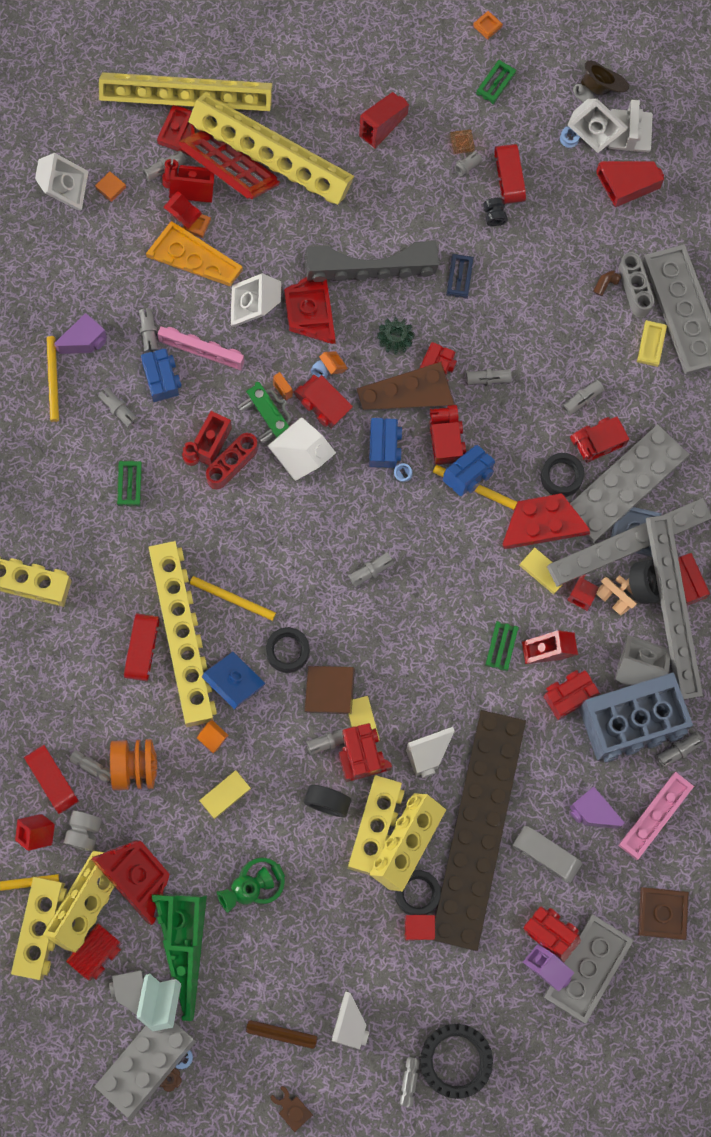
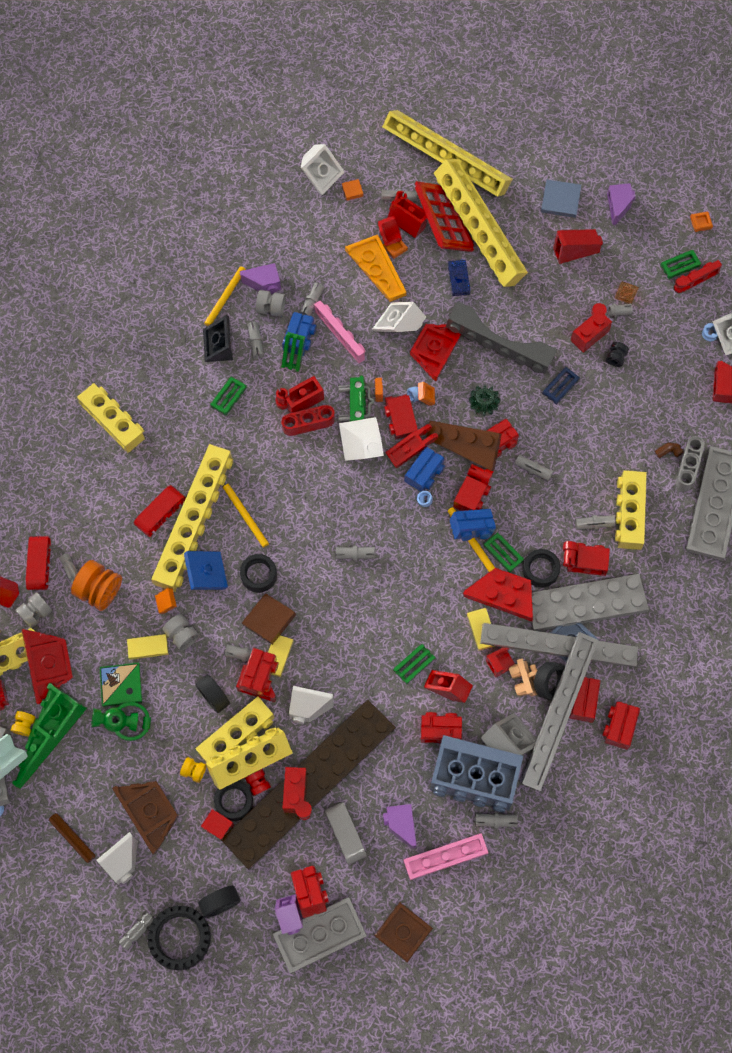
camera: 40 degrees right, 5 degrees down
(80, 431) = (218, 341): none -> black slope
(108, 359) = (270, 303): none -> light grey wheel
(152, 959) = (23, 723): none -> yellow wheel
(174, 412) = (290, 365): none -> green tile
(176, 128) = (423, 173): red wing -> none
(224, 850) = (120, 684): none -> tile
(251, 758) = (180, 632): none -> light grey wheel
(285, 220) = (459, 277): none -> clear blue plate
(293, 1111) = (43, 898): reddish brown plate -> none
(332, 77) = (561, 198): none -> sand blue tile
(341, 958) = (148, 811): none -> reddish brown wing
(352, 888) = (193, 769): none -> yellow wheel
(354, 427) = (410, 446): none -> red hinge
(394, 47) = (620, 200): none -> medium lavender slope
(432, 861) = (258, 782): none -> red wheel
(456, 198) = (592, 329): none -> red hinge
(474, 1000) = (219, 901): none -> black tyre
(477, 846) = (295, 793): none -> red hinge
(499, 468) = (520, 559): none -> green tile
(511, 174) = (646, 333): red beam -> none
(520, 87) = (696, 277): none -> red hinge
(599, 333) = (636, 482): none -> light yellow brick
(651, 343) = (674, 513): light yellow tile -> none

